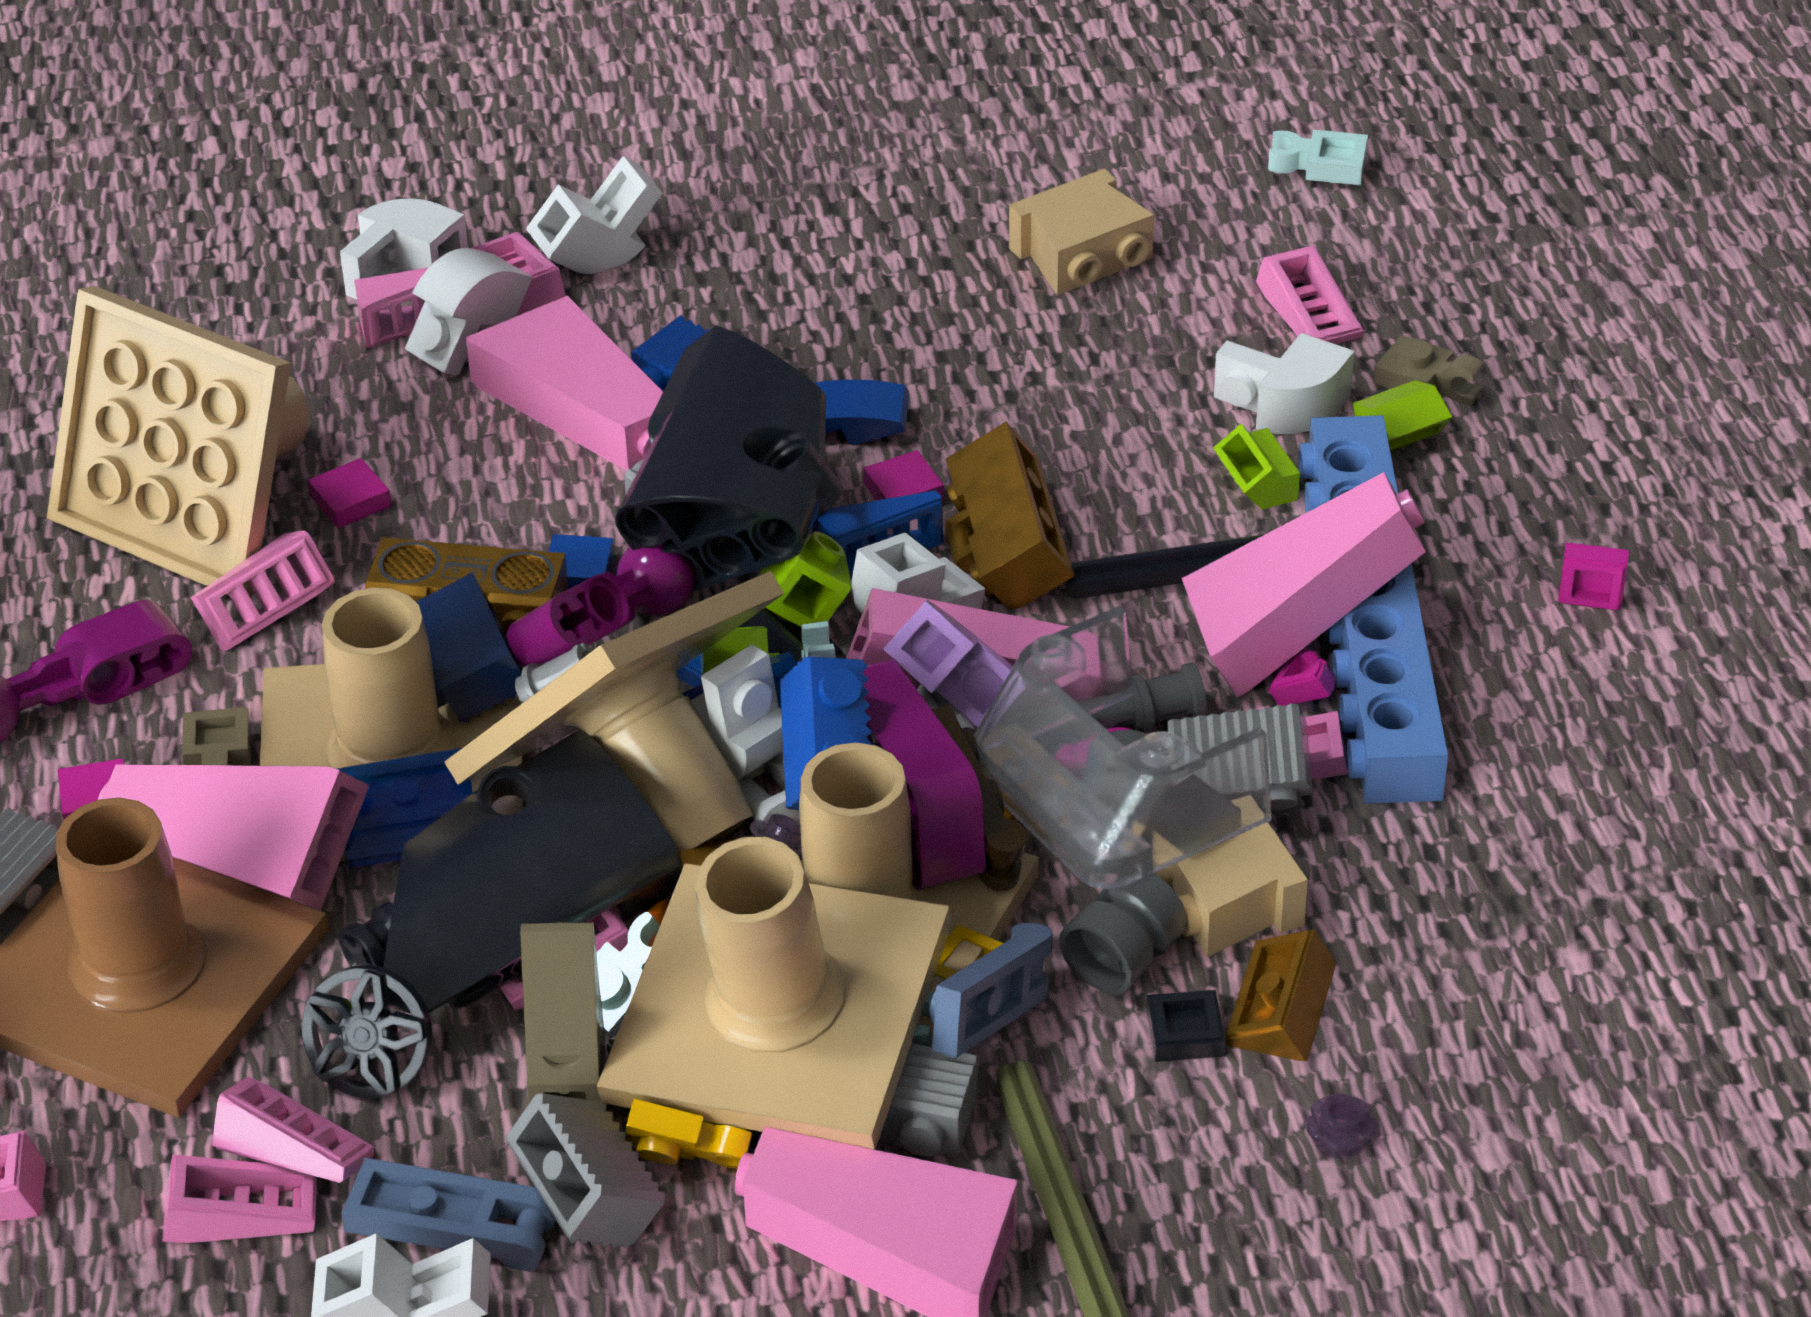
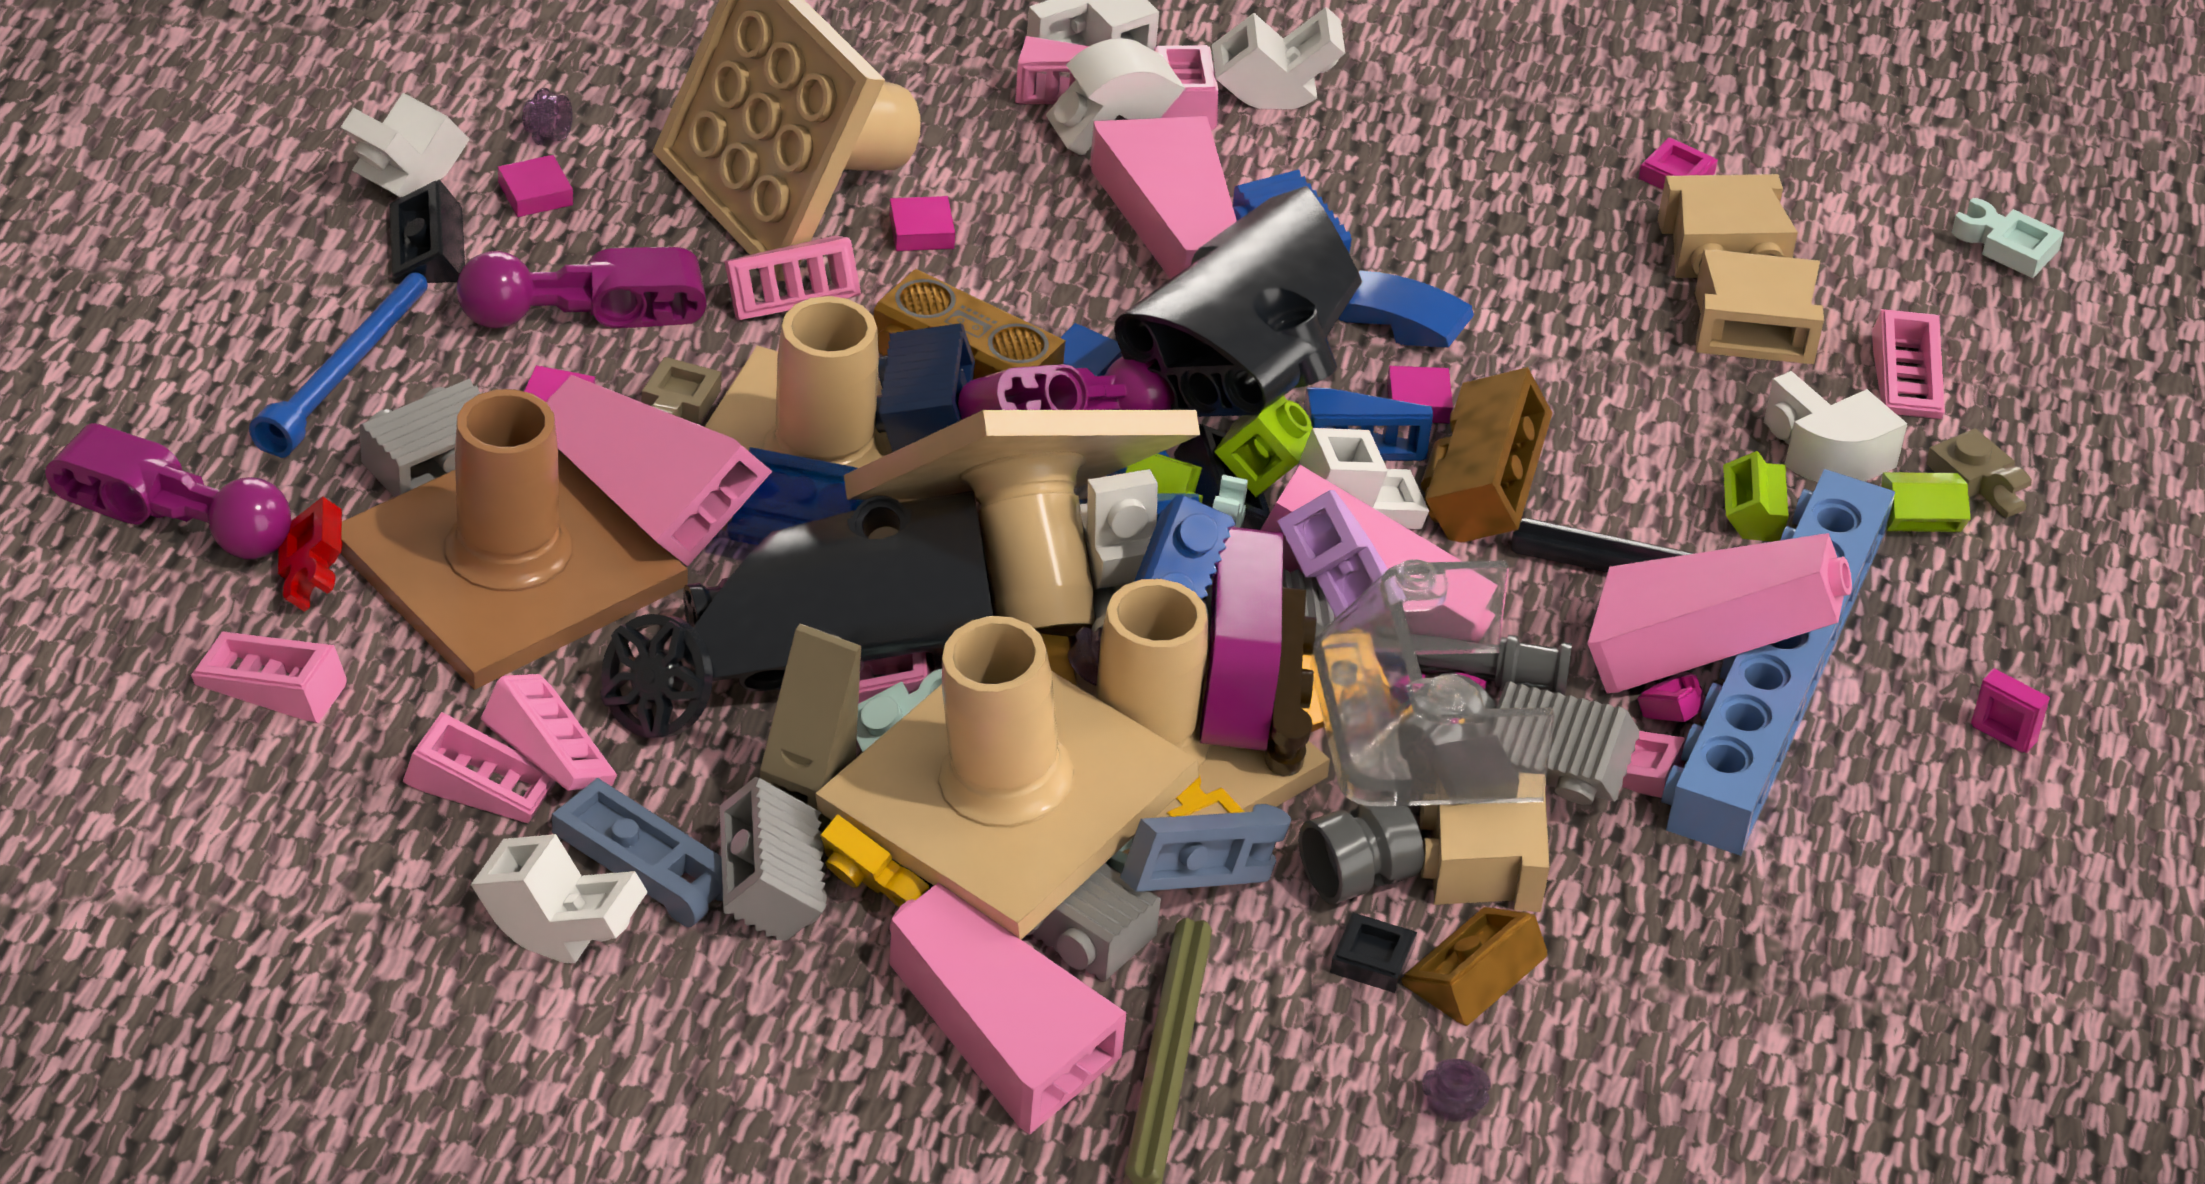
camera: 20 degrees right, 0 degrees up
(995, 192) = (1675, 159): none -> dark pink tile
(1153, 294) = (1758, 306): none -> tan hips

